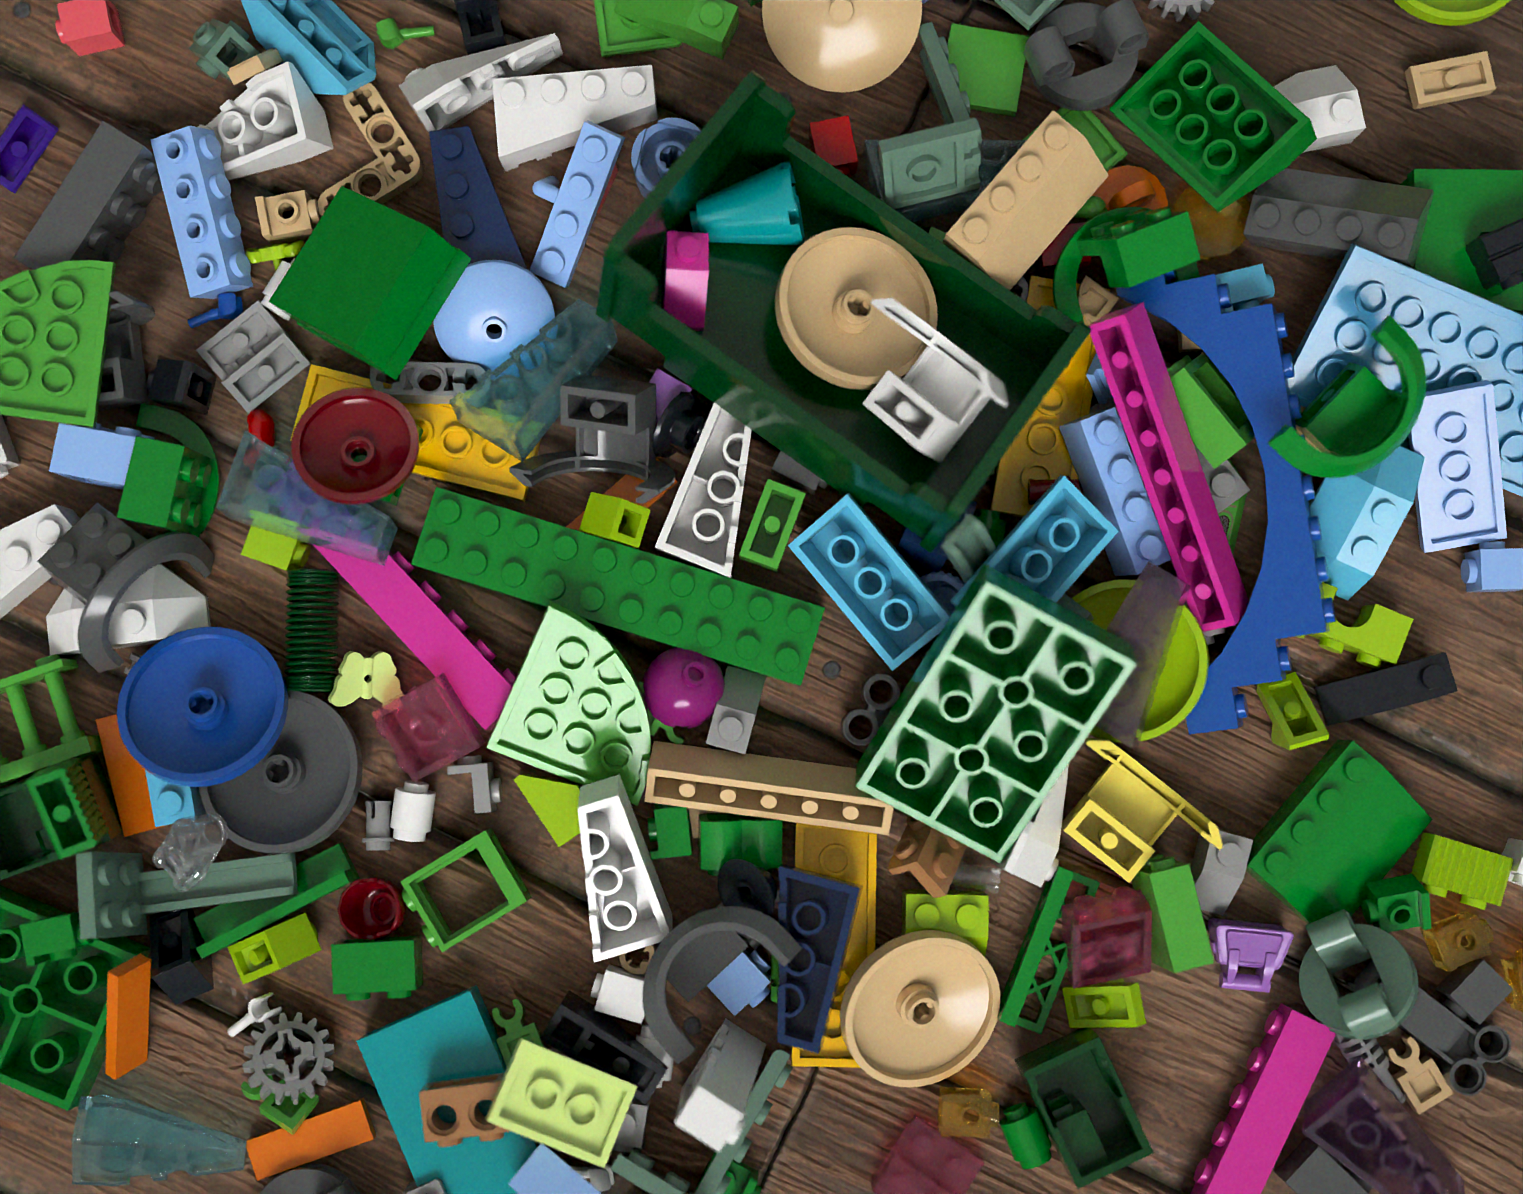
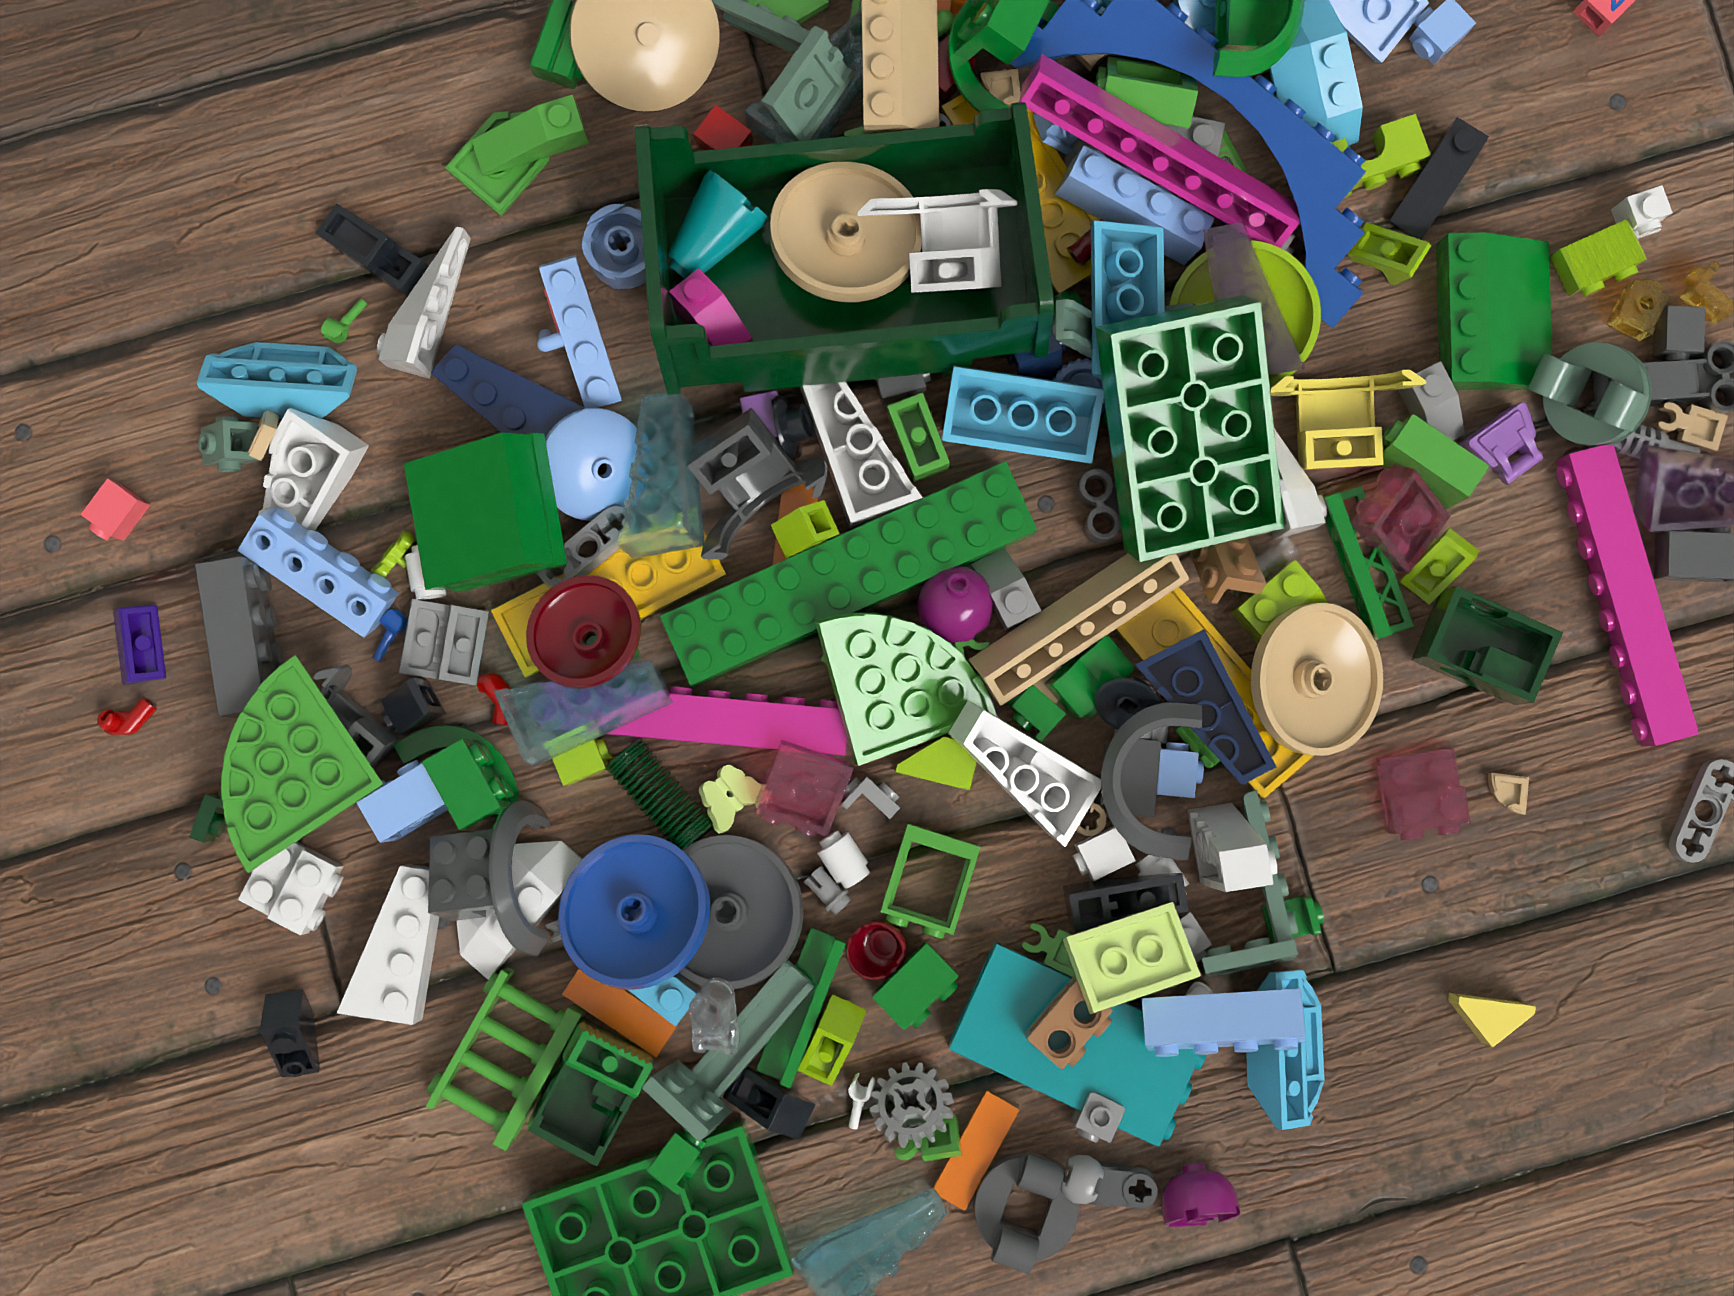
camera: 40 degrees left, 0 degrees up
(127, 1016) = (774, 1174): orange tile -> none
(280, 230) = (385, 534): tan brick -> none
(383, 167) = (415, 429): tan beam -> none
(548, 110) = (507, 277): white wedge -> none
(955, 1102) = (1398, 729): clear yellow brick -> none
(1026, 1135) = (1465, 703): green brick -> none
(1397, 904) = (1576, 319): green brick -> none

